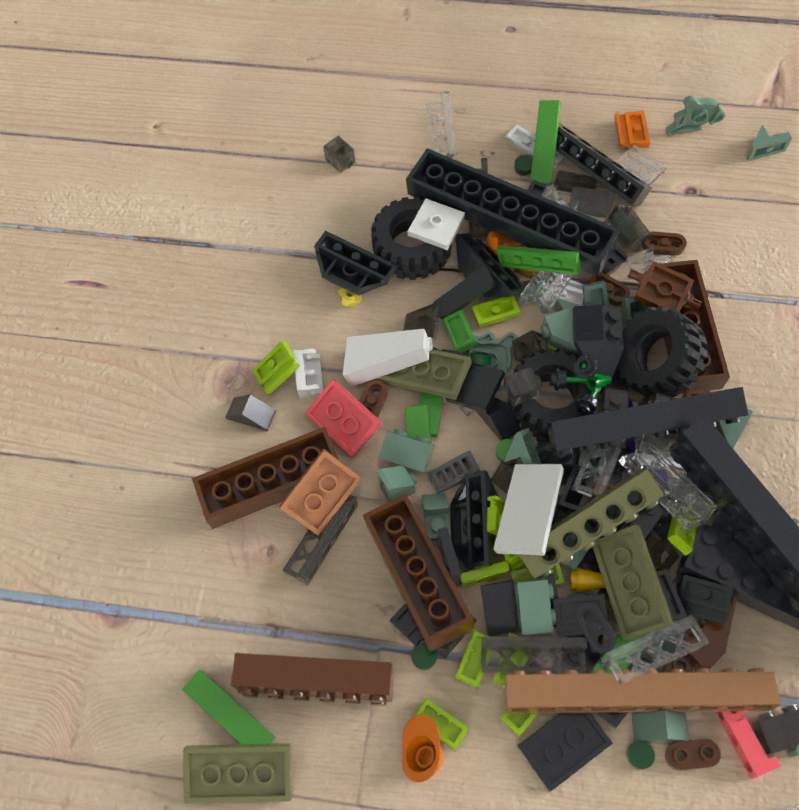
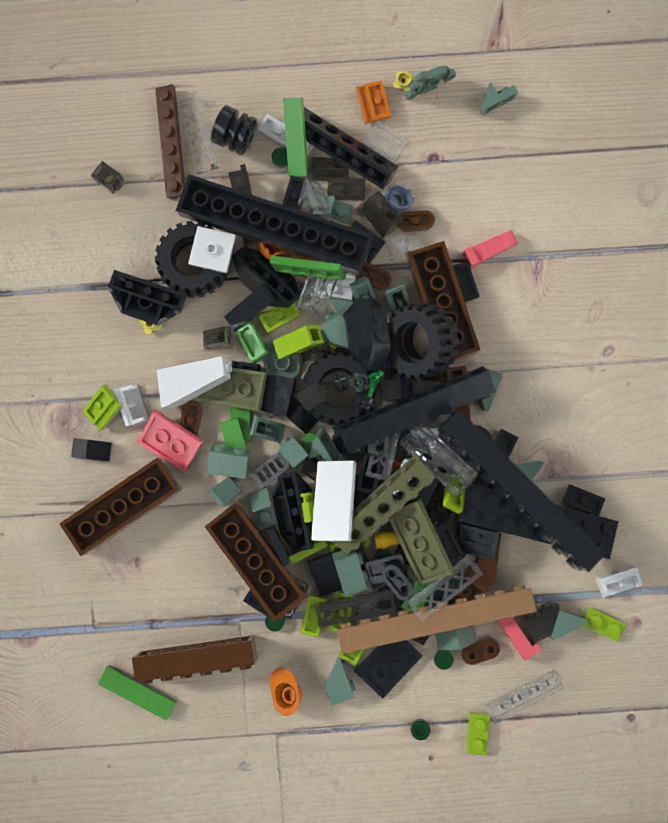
camera: 15 degrees left, 20 degrees up
(237, 773) = (155, 735): olive plate -> none
(320, 492) = (166, 514): nougat plate -> none
(325, 543) = (181, 545): clear smoke fence -> none
(411, 131) = (170, 140): none -> reddish brown plate
(450, 728) = (302, 670): lime plate -> none
(457, 425) = (267, 429): none -> sand green slope
(480, 128) = (233, 130): none -> black wheel
(481, 358) = (274, 367): dark green tile -> none
(487, 450) = (293, 452): none -> sand green brick
(493, 755) = (338, 685): none -> sand green slope
(514, 331) = (298, 341): none -> lime brick
(650, 217) = (399, 198): none -> sand blue hair
(663, 288) = (418, 280): reddish brown plate -> none
(665, 116) = (403, 75): none -> light yellow plate
(719, 311) = (466, 281): none -> black plate
(746, 283) = (490, 248): none -> coral leg

